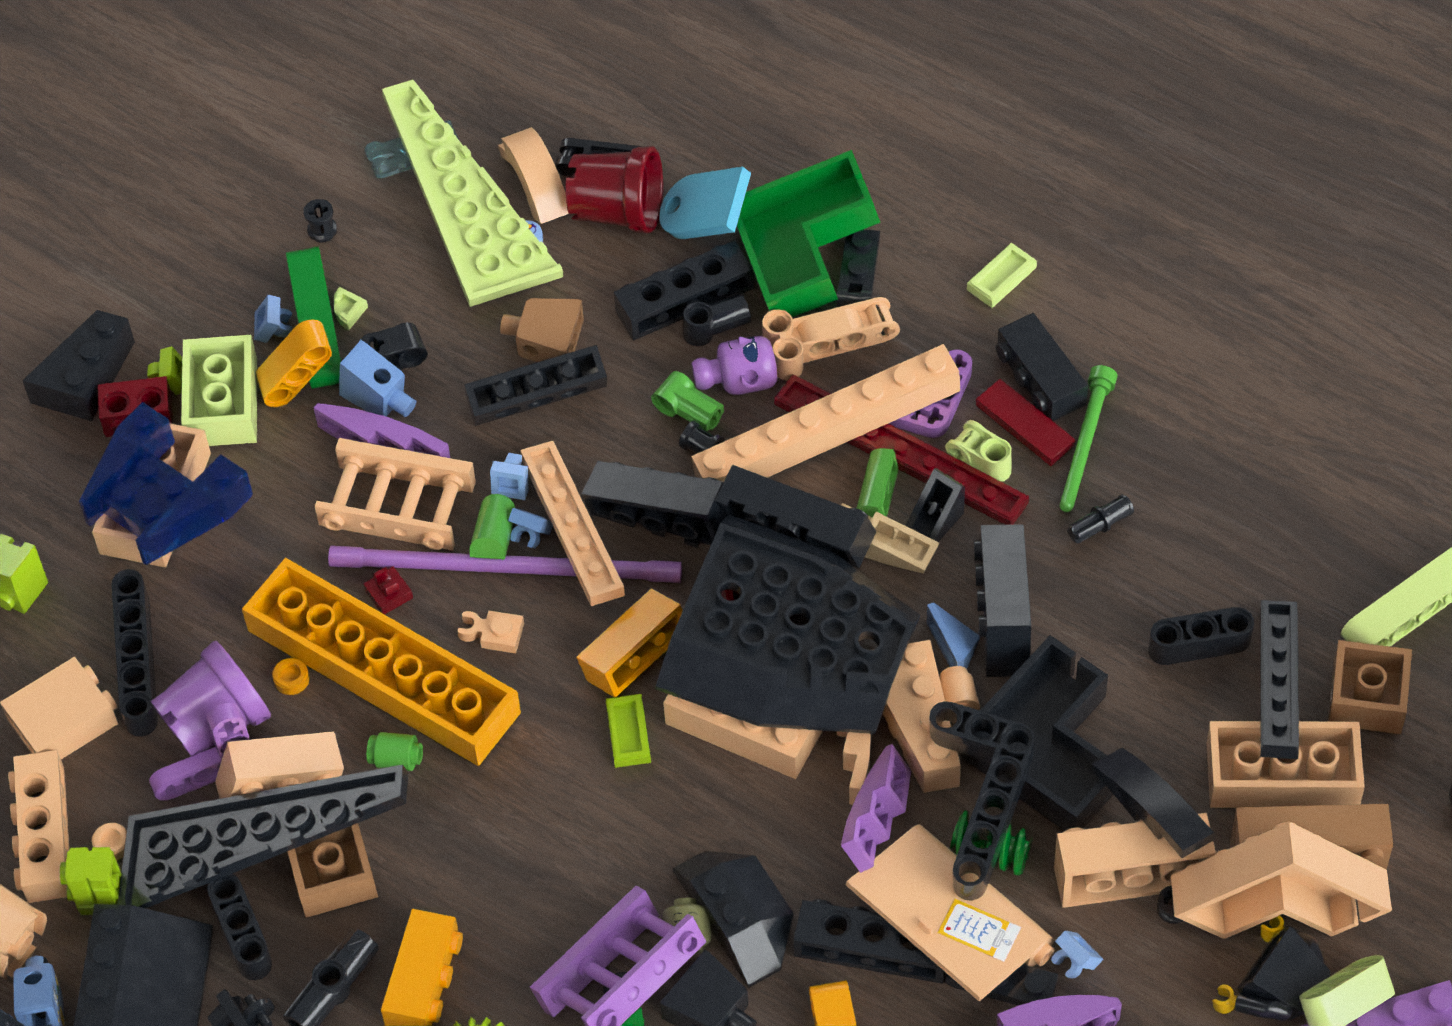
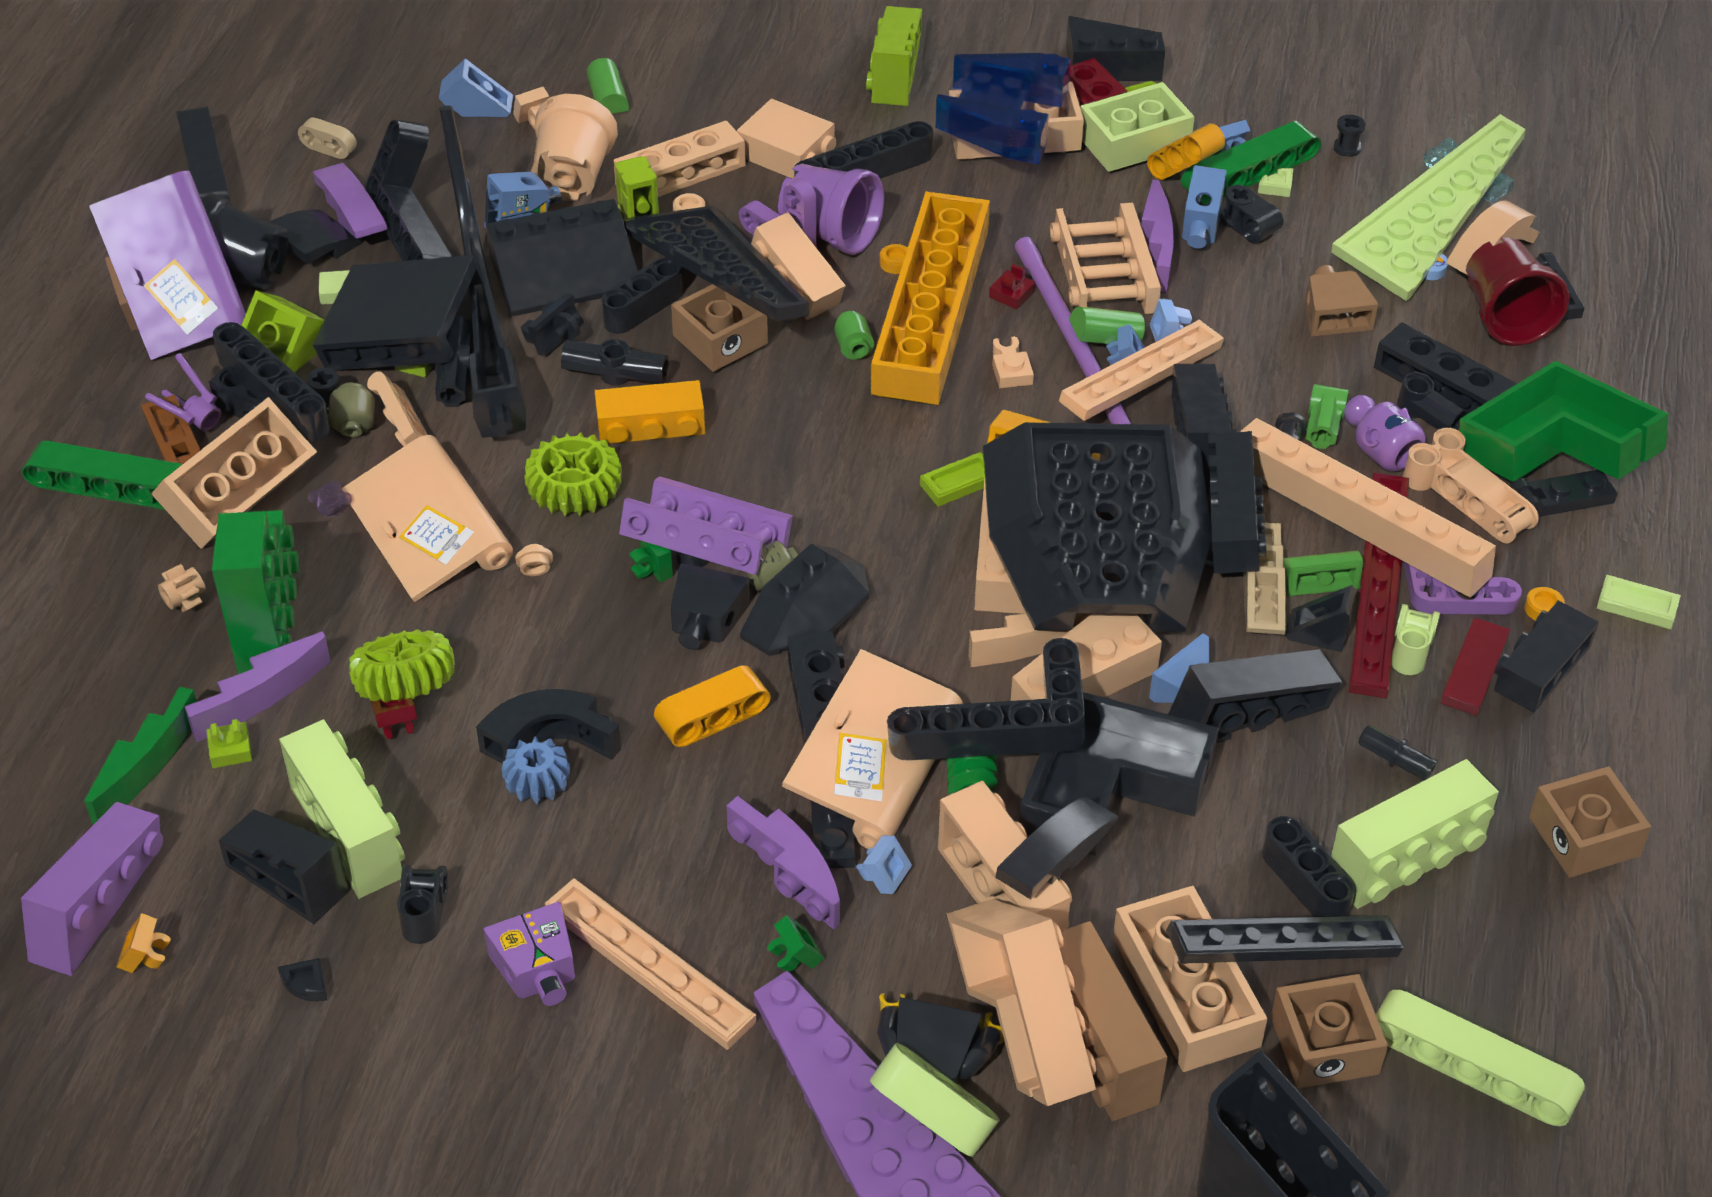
camera: 65 degrees right, 10 degrees down
(535, 385) = (1270, 306): black brick -> none
(707, 203) = (1543, 351): medium azure tile -> none
(875, 806) = (952, 653): medium lavender slope -> none
(959, 687) = (1130, 688): light nougat brick -> none
(977, 342) = (1541, 599): none -> light orange tile
(1101, 383) = (1564, 710): bright green piece -> none
(1204, 539) = (1415, 832): none -> yellowish green brick
(1231, 417) = (1589, 821): none -> medium nougat brick

